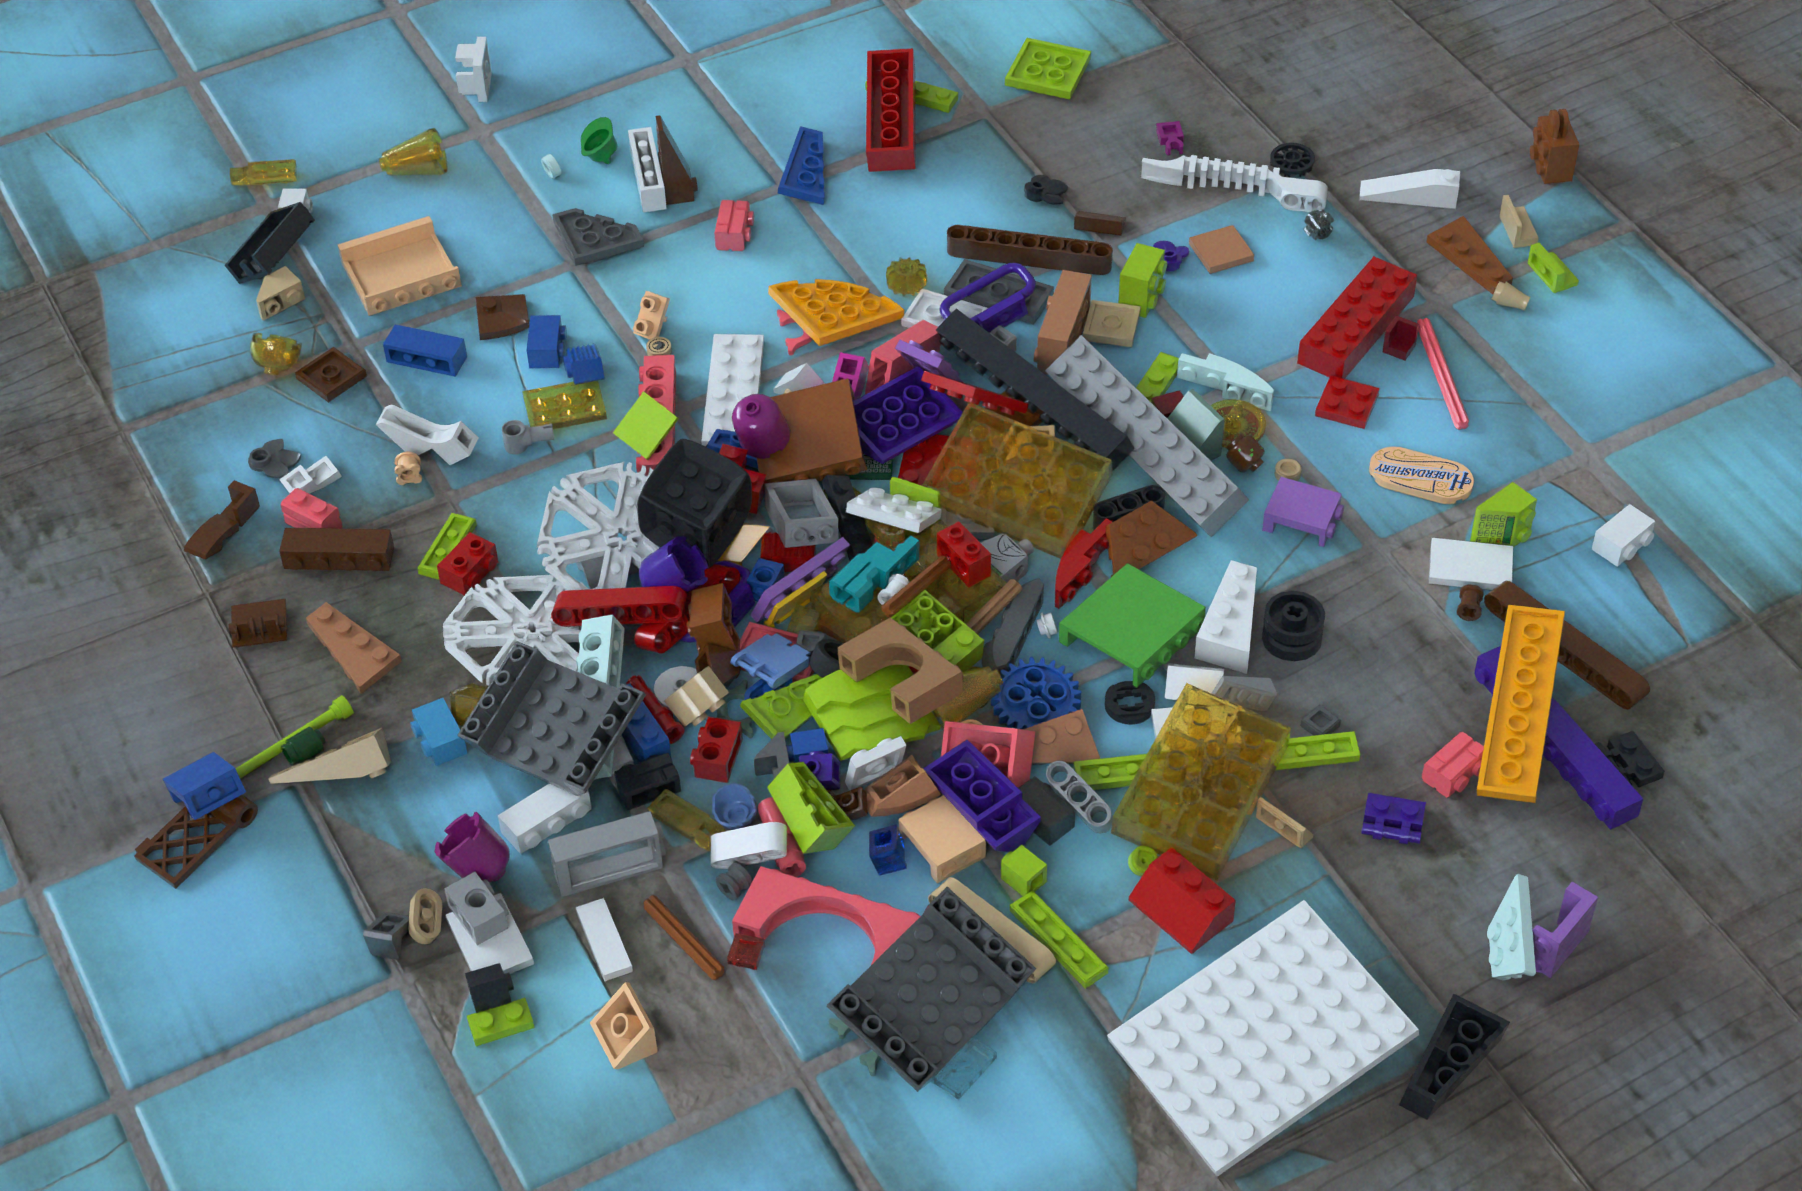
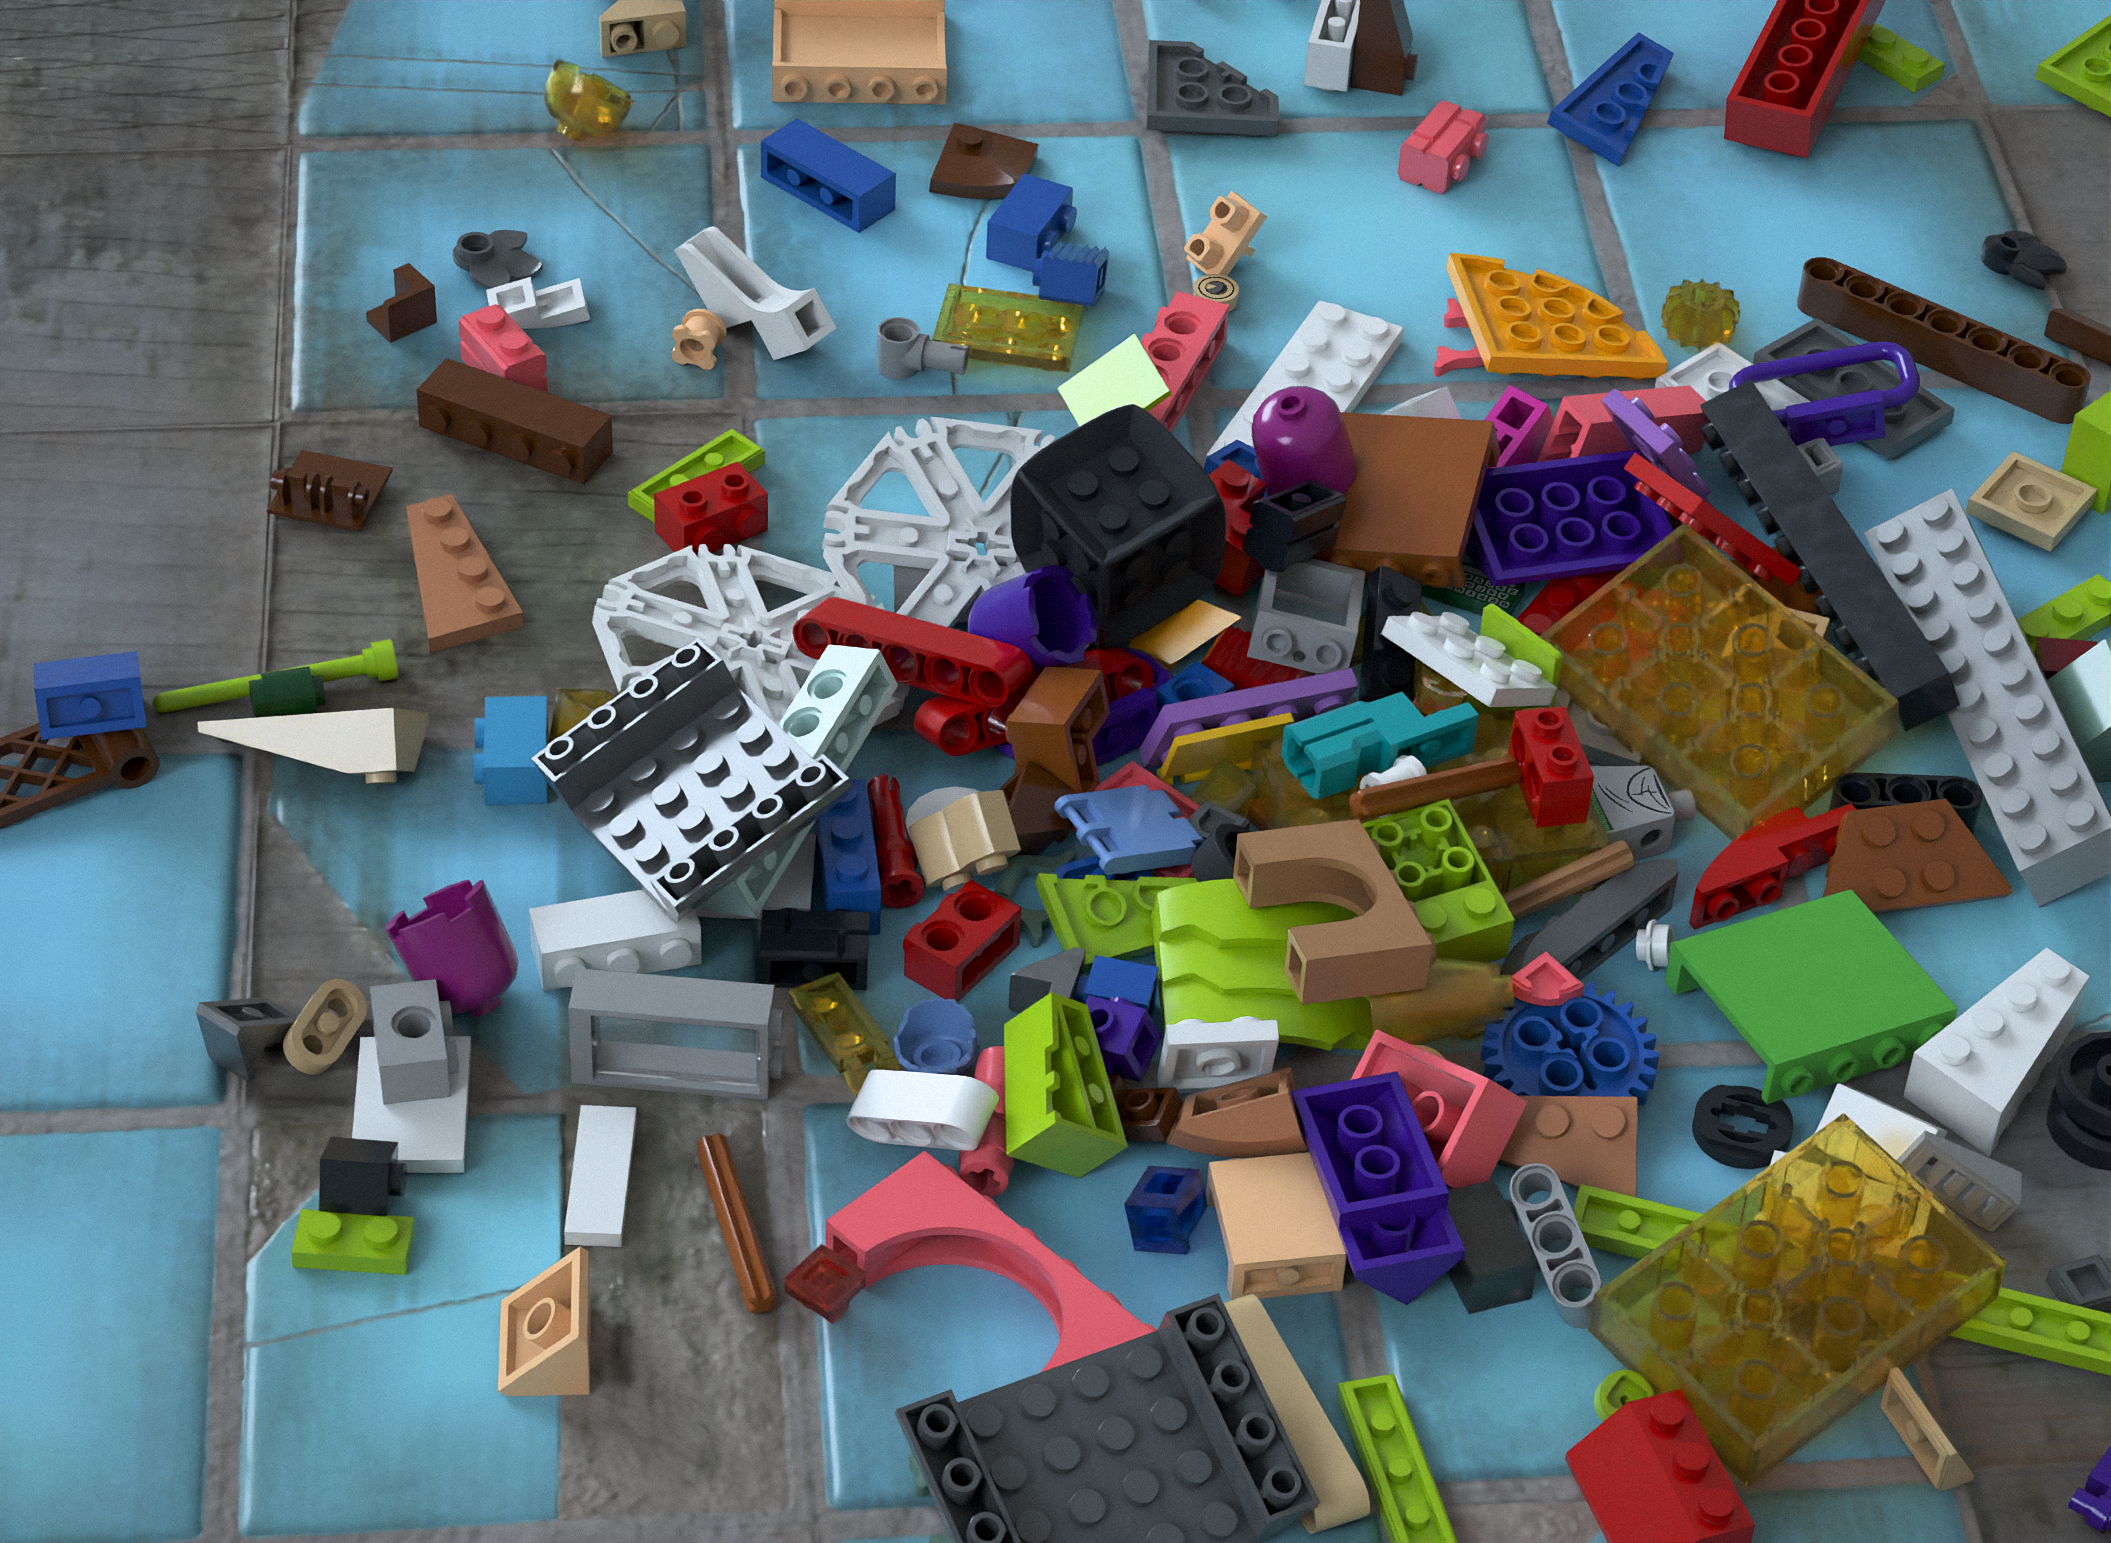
camera: 20 degrees right, 5 degrees down
(209, 536) = (325, 338): reddish brown slope -> none
(330, 374) = (660, 165): reddish brown tile -> none
(734, 881) = (869, 1161): dark grey wheel -> none
(776, 469) = (1294, 525): none -> black brick
(1011, 665) = (1546, 982): none -> coral tile
(1023, 870) = (1393, 1334): lime brick -> none
(1064, 317) = (1947, 450): nougat brick -> none

